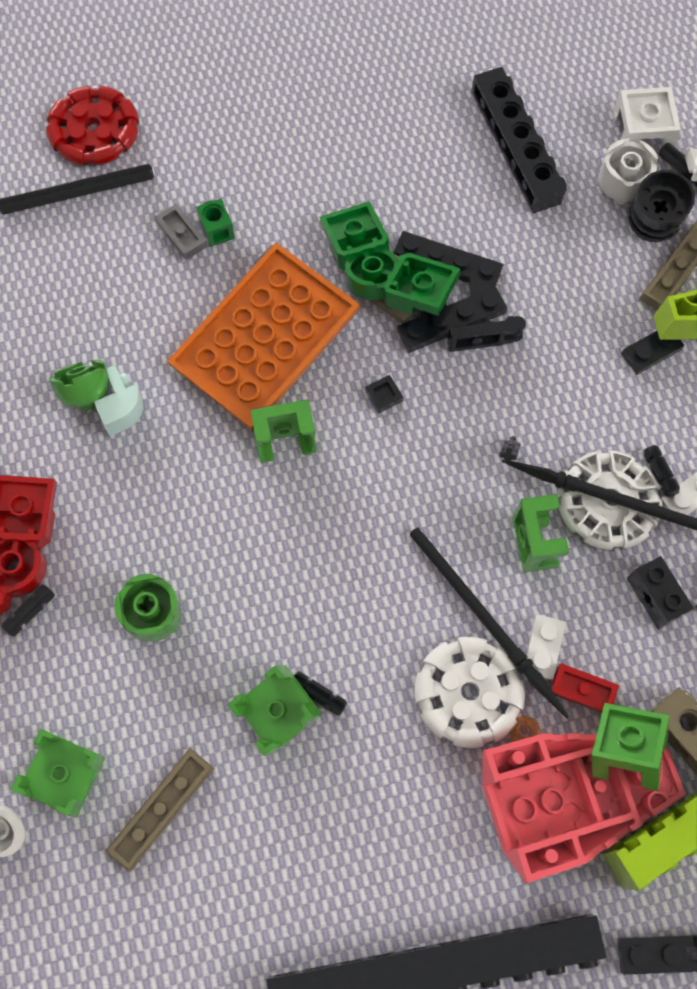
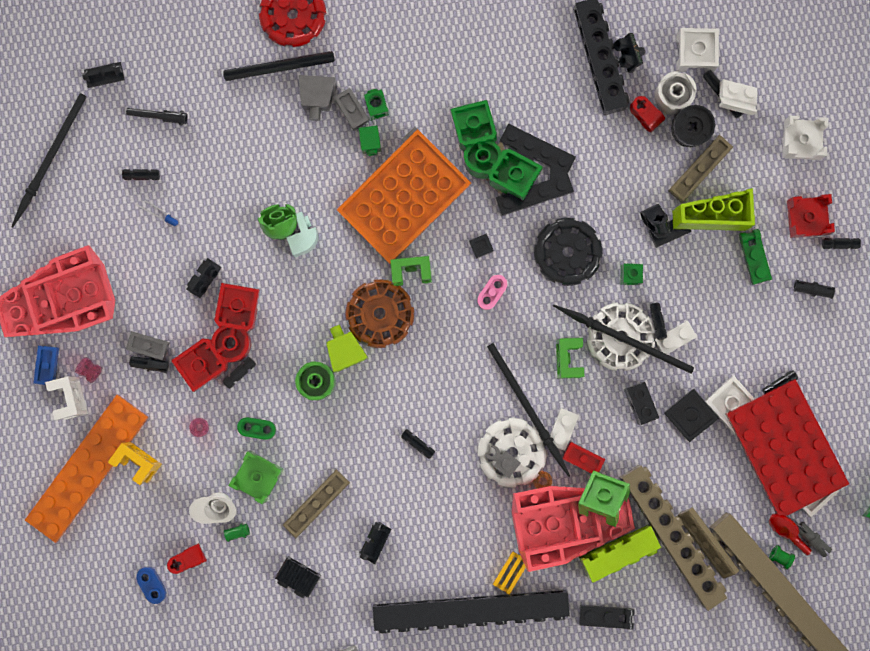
camera: 10 degrees right, 15 degrees up
(29, 872) = (237, 532): none -> green pin
(59, 694) = (257, 428): none -> green plate
(130, 215) = (316, 94): none -> flat silver torso
(134, 940) = (297, 577): none -> black brick
(191, 559) = (344, 350): none -> lime torso
(209, 266) = (370, 140): none -> green brick
(247, 517) = (391, 316): none -> dark orange plate
(258, 877) = (378, 536): none -> black hinge
(276, 709) = (391, 452): bright green panel -> none
(408, 456) = (492, 292): none -> bright pink plate
(462, 706) = (505, 463): none -> flat silver plate
(483, 920) = (502, 587): none -> yellow tile
(486, 334) = (557, 209): black hinge -> none
(509, 373) = (579, 247): none -> black plate
(510, 450) = (559, 298): black axle -> none
(556, 128) = (631, 53): none -> black hips
(594, 203) = (648, 115): none -> red piece
(610, 408) = (631, 274): none -> green brick
(632, 332) = (656, 221): none -> black piece

